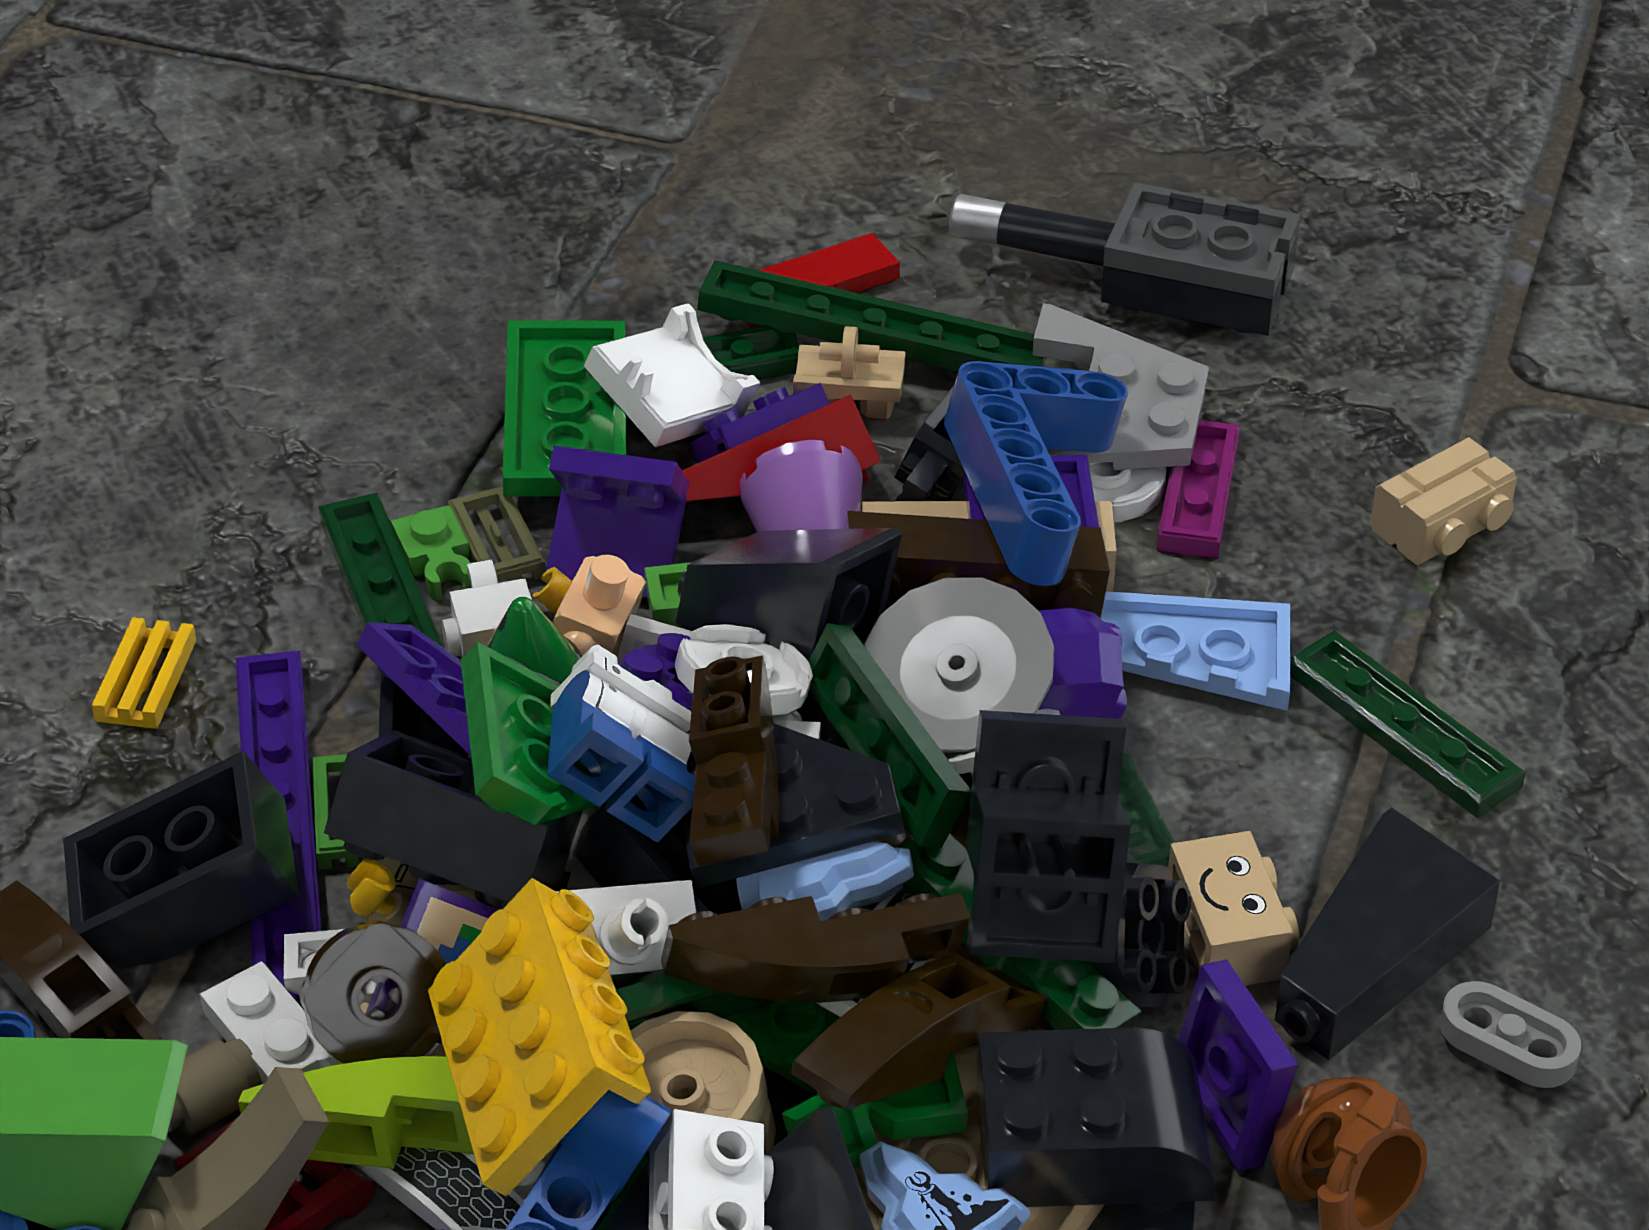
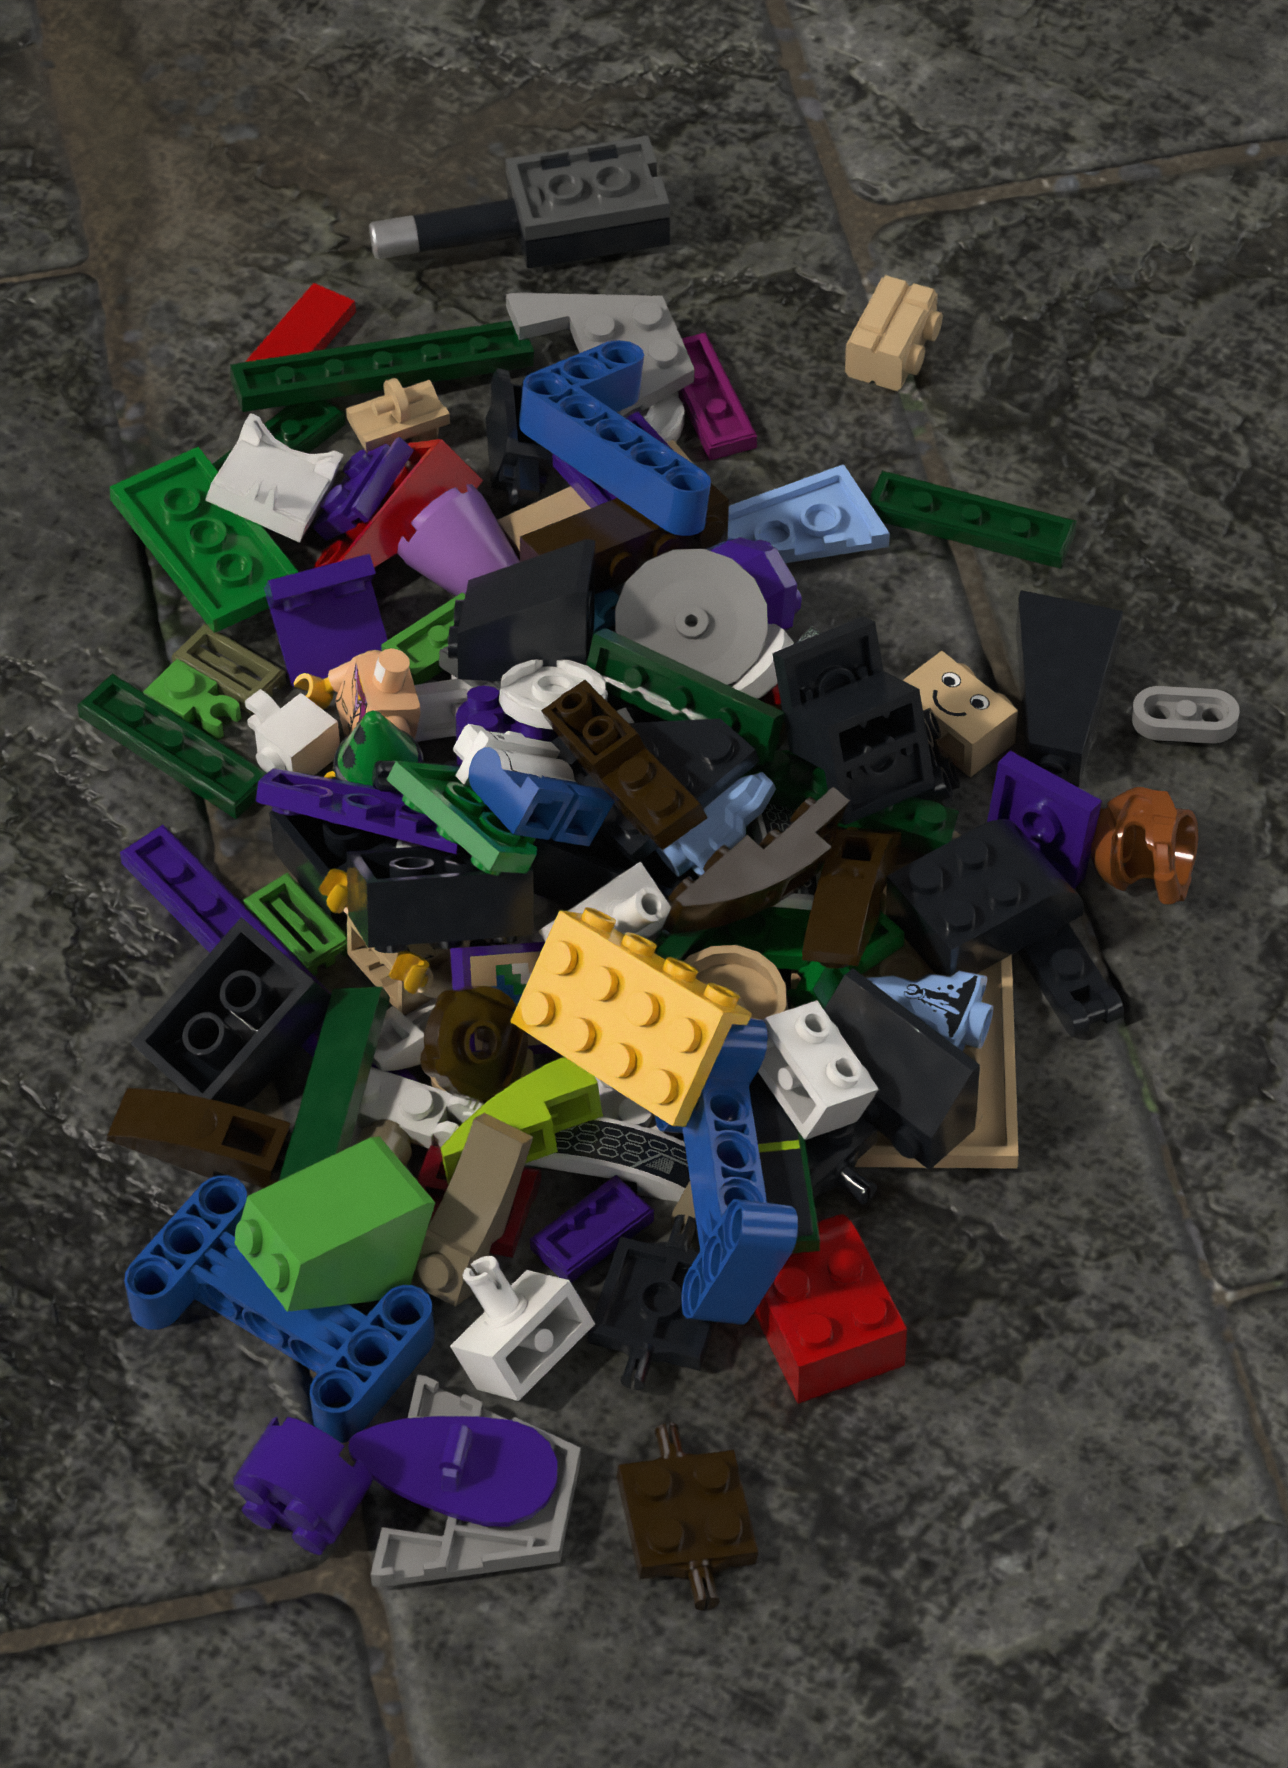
camera: 30 degrees left, 10 degrees up
(123, 663) = (47, 862): yellow tile -> none
(225, 964) = (337, 1076): none -> dark green tile

